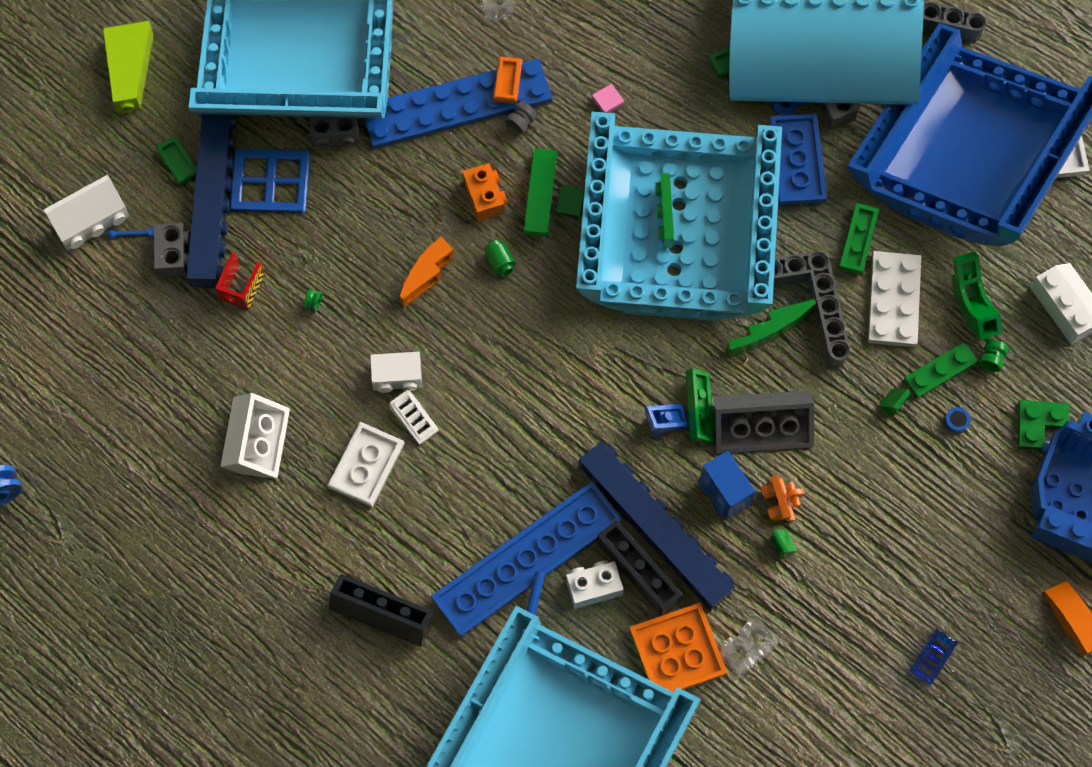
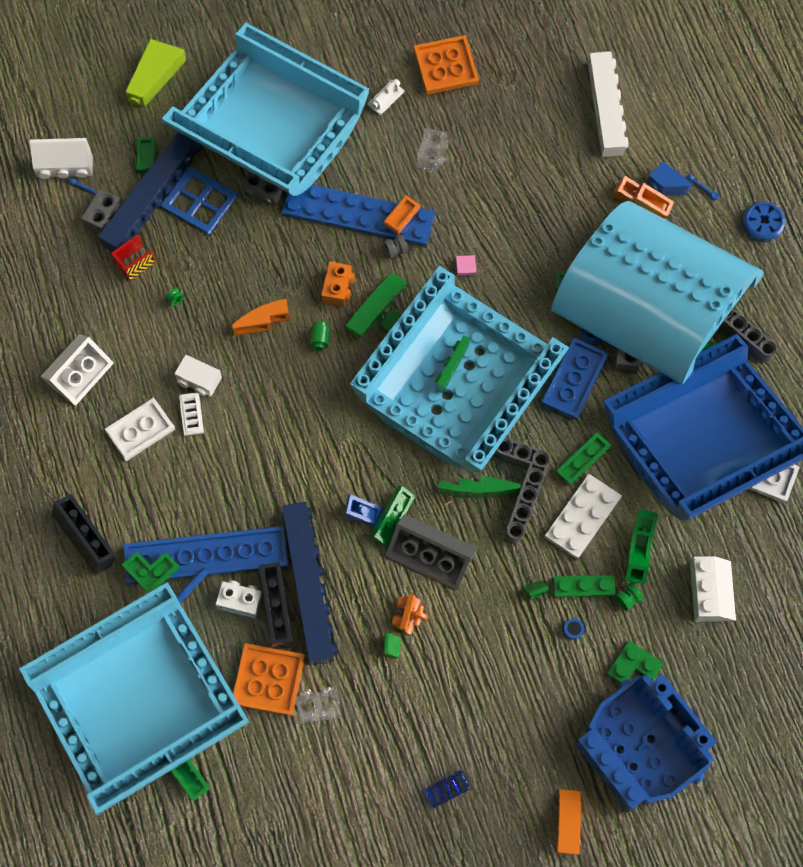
camera: 30 degrees right, 0 degrees up
(483, 613) = (152, 575): none -> green plate
(726, 485) = (373, 577): blue brick -> none

